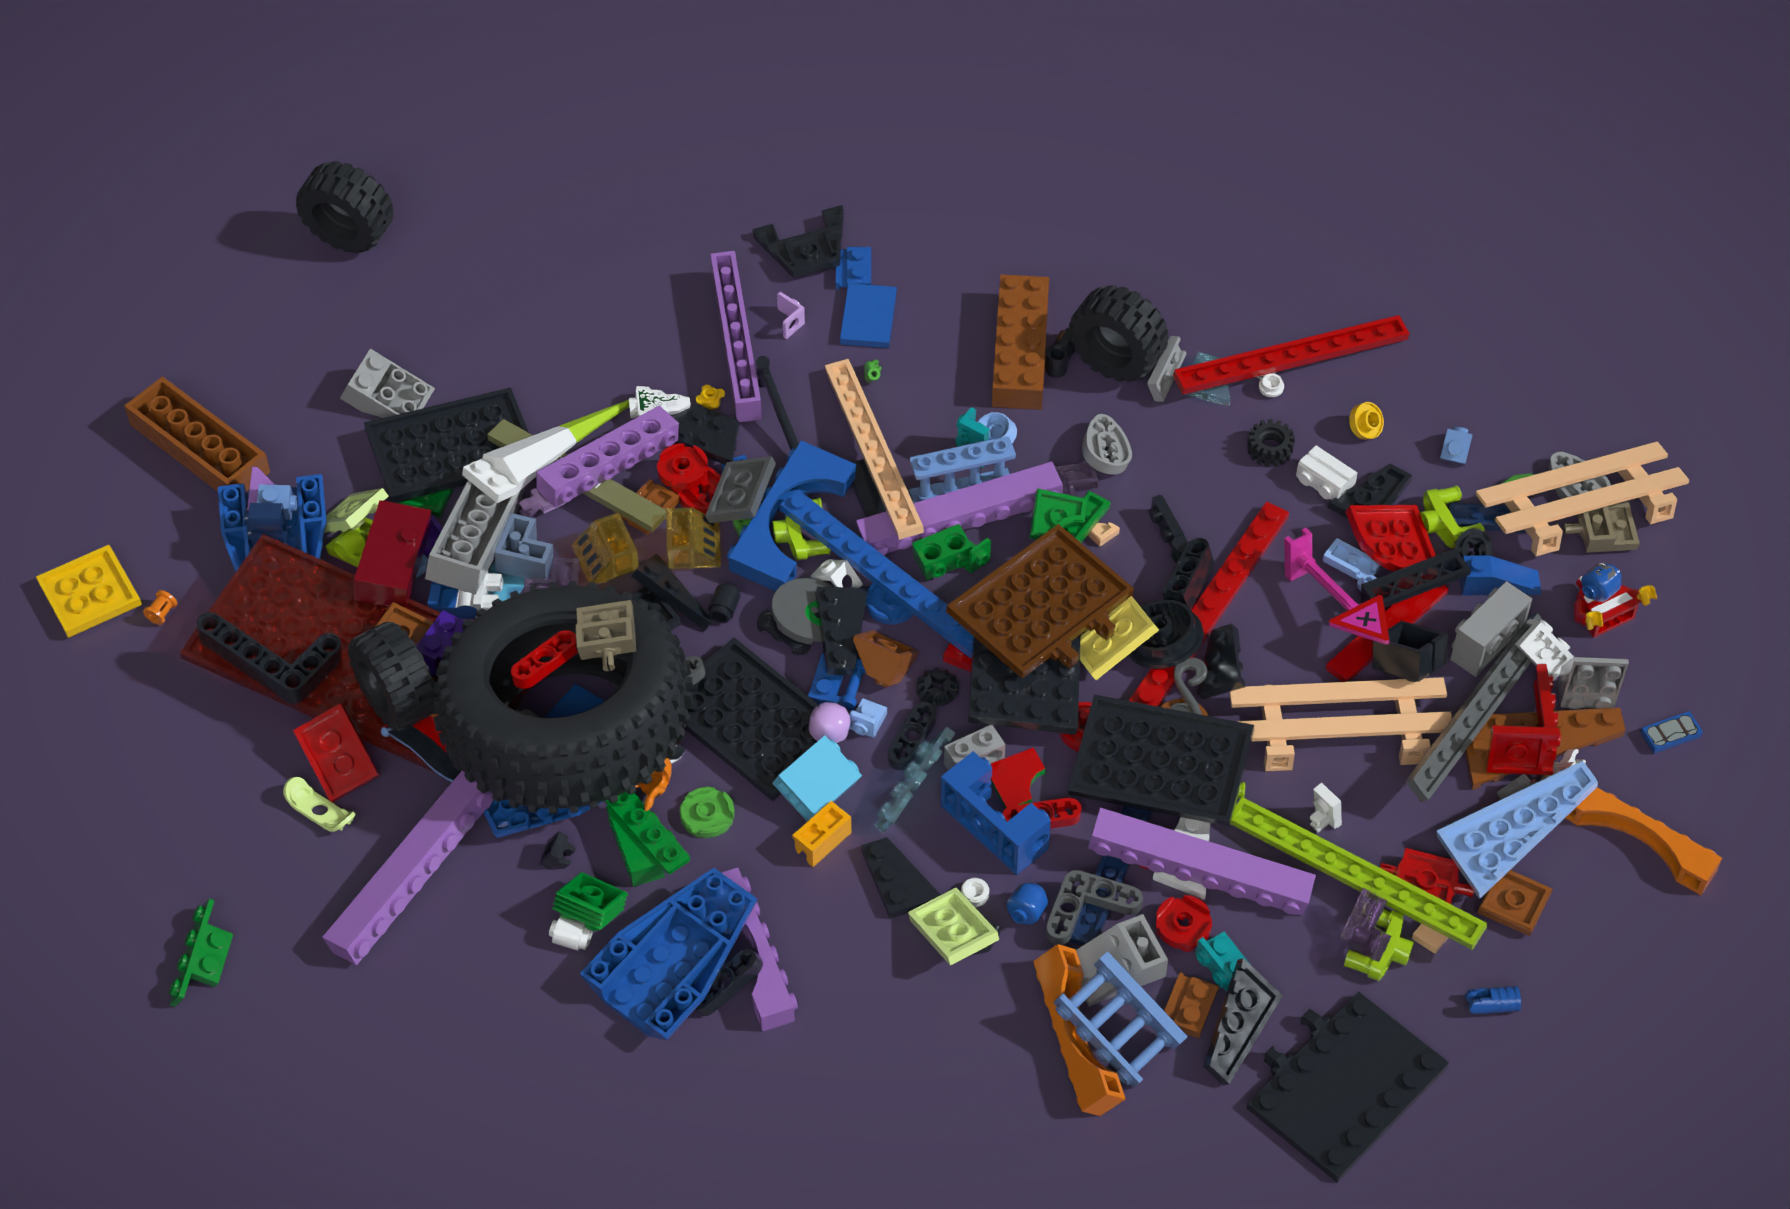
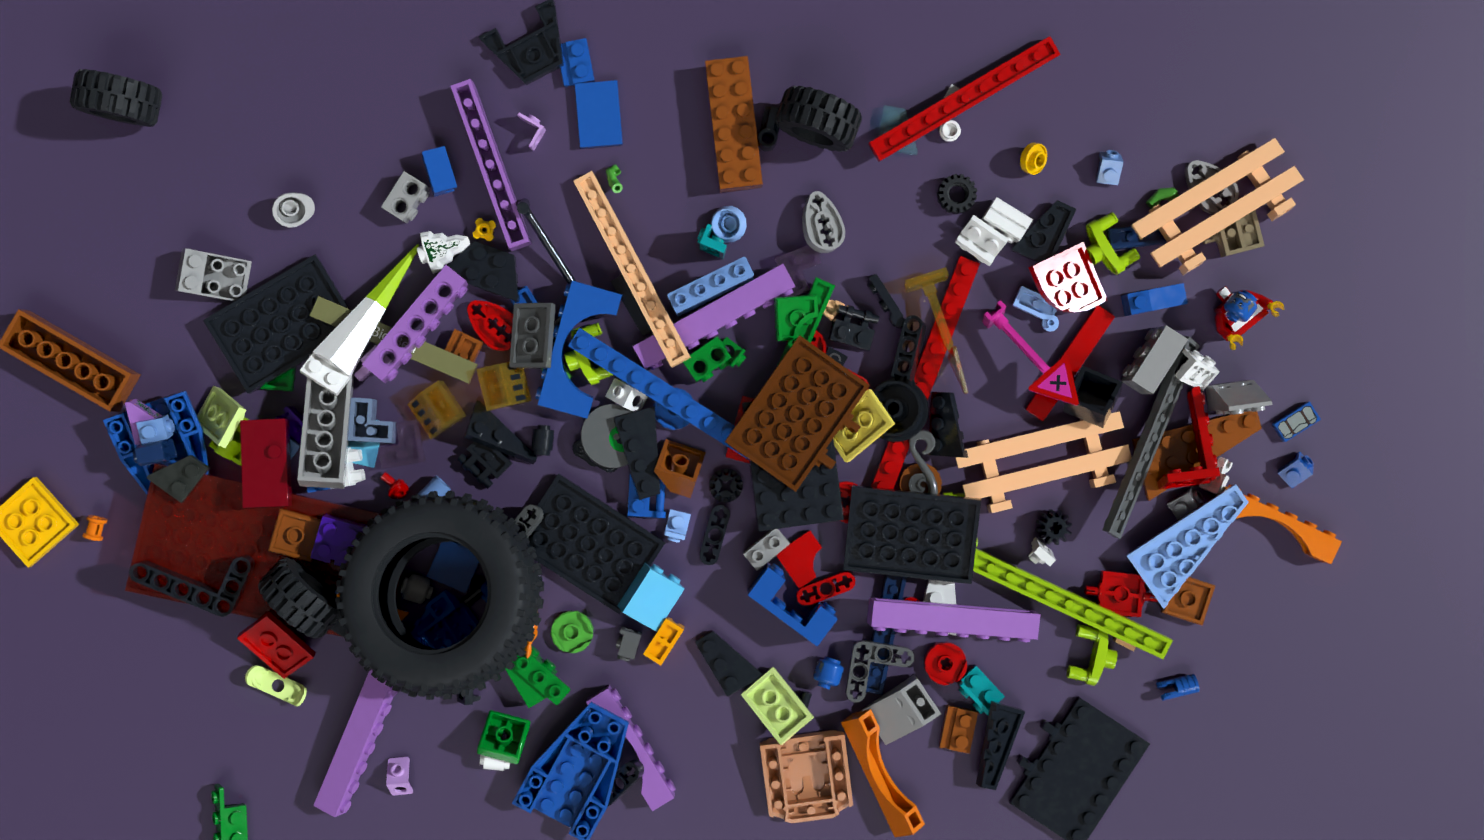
camera: 10 degrees left, 35 degrees up
(287, 550) = (180, 477): none -> pearl dark grey wing
(439, 928) = (398, 776): none -> lavender bracket
(500, 341) = (293, 209): none -> light grey piece
(559, 647) = (416, 611): red beam -> none
(605, 631) = (462, 562): dark tan plate -> none
(629, 353) = (401, 194): none -> light grey brick
(674, 335) = (439, 171): none -> blue hinge
(682, 478) = (466, 315): red plate -> none
(777, 830) = (628, 643): none -> dark grey brick
(829, 721) = (650, 544): lavender hair -> none
(927, 754) = (723, 583): clear light blue wing -> none
(975, 891) = (786, 663): white tile -> none
(975, 1022) = (807, 776): none -> nougat wedge
(1122, 556) = (852, 334): none -> black plate
(1127, 993) = (915, 746): medium blue fence -> none
(1162, 374) = (856, 152): light grey hinge -> none
(1223, 519) = (927, 283): none -> clear yellow piece
(1294, 487) = (981, 240): none -> white bracket
(1349, 789) = (1058, 532): none -> black gear
(1361, 927) = (1078, 653): clear purple plate -> none
(1416, 578) = (1086, 319): black fence -> none
(1472, 537) = (1139, 274): black gear -> none
(1668, 780) = (1297, 470): none -> blue bracket

